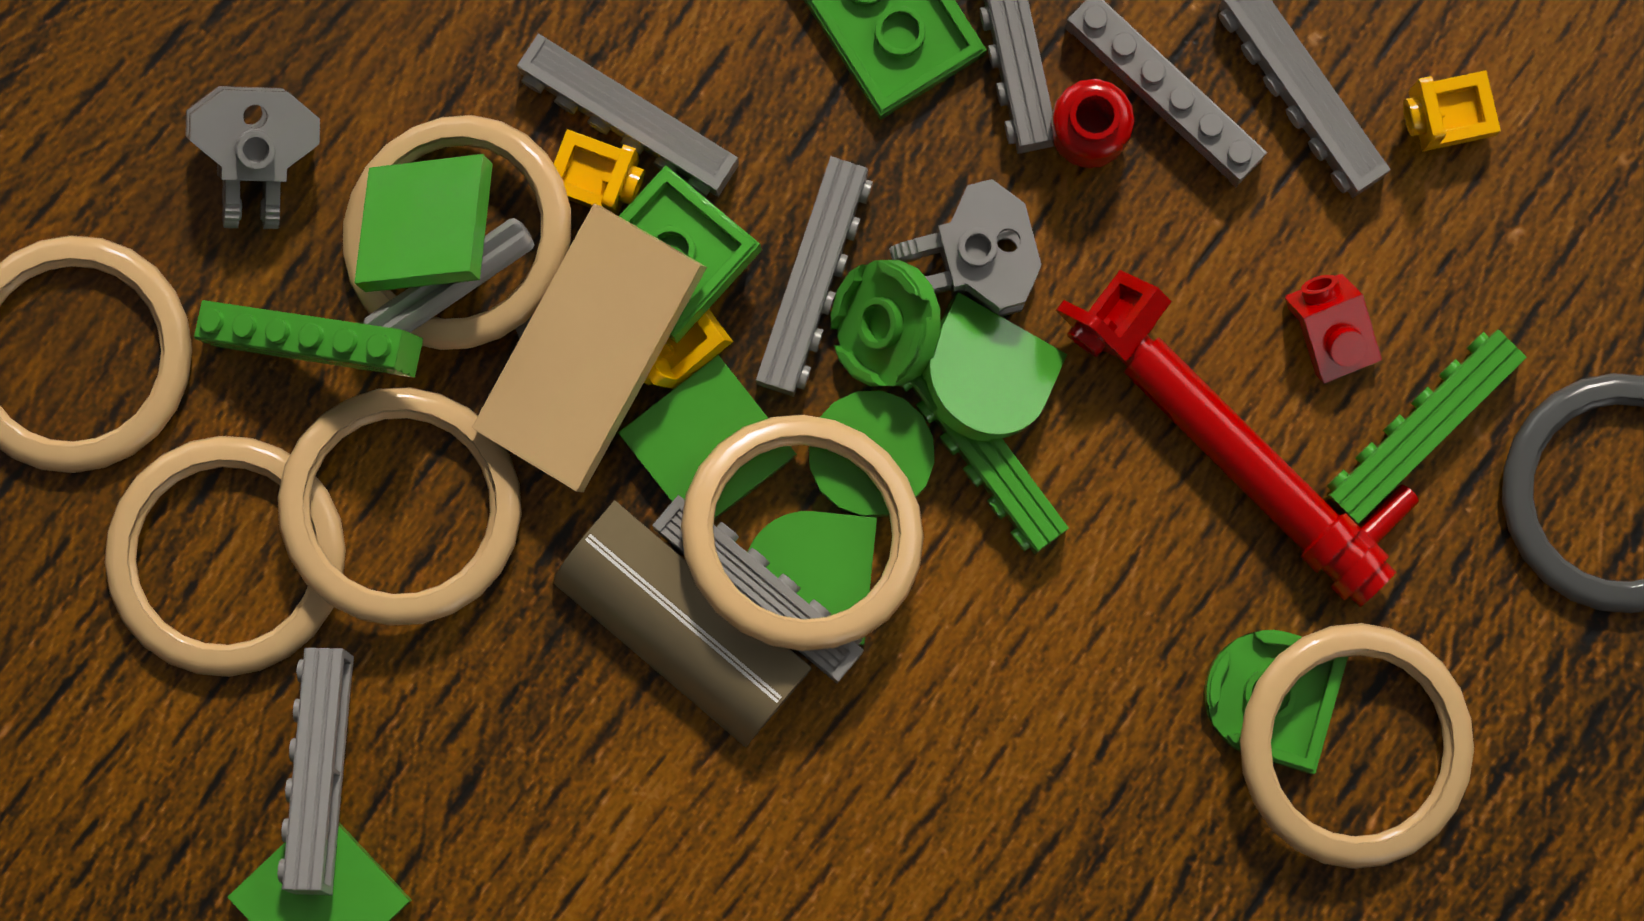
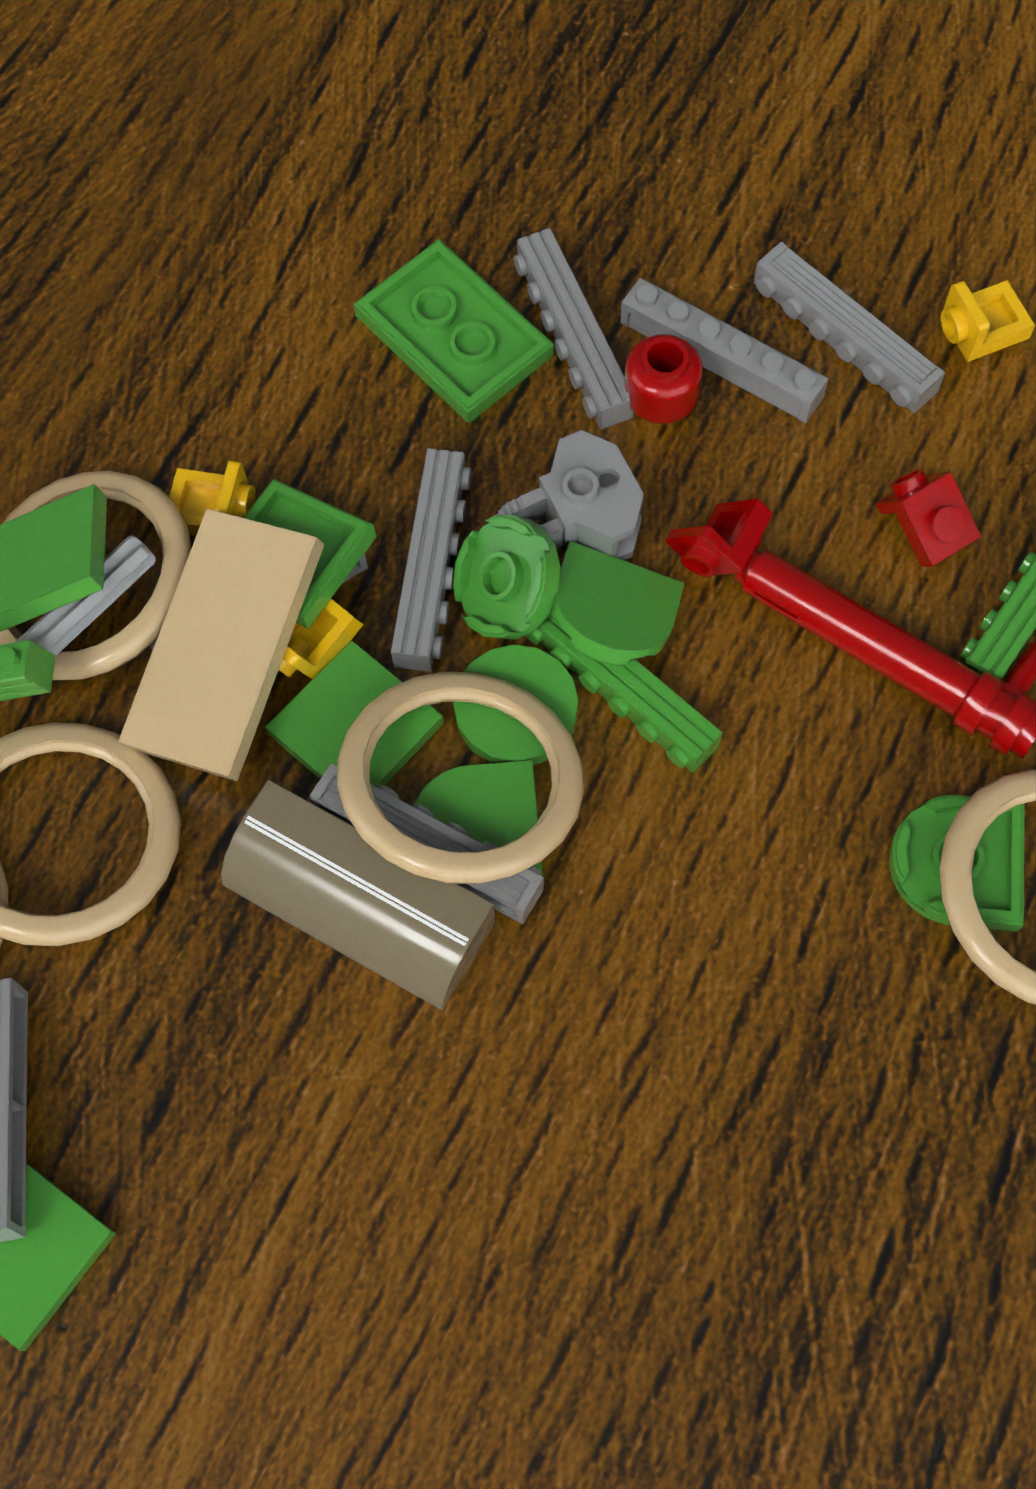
camera: 10 degrees left, 15 degrees down
(627, 115) = (212, 444): light grey piece -> none

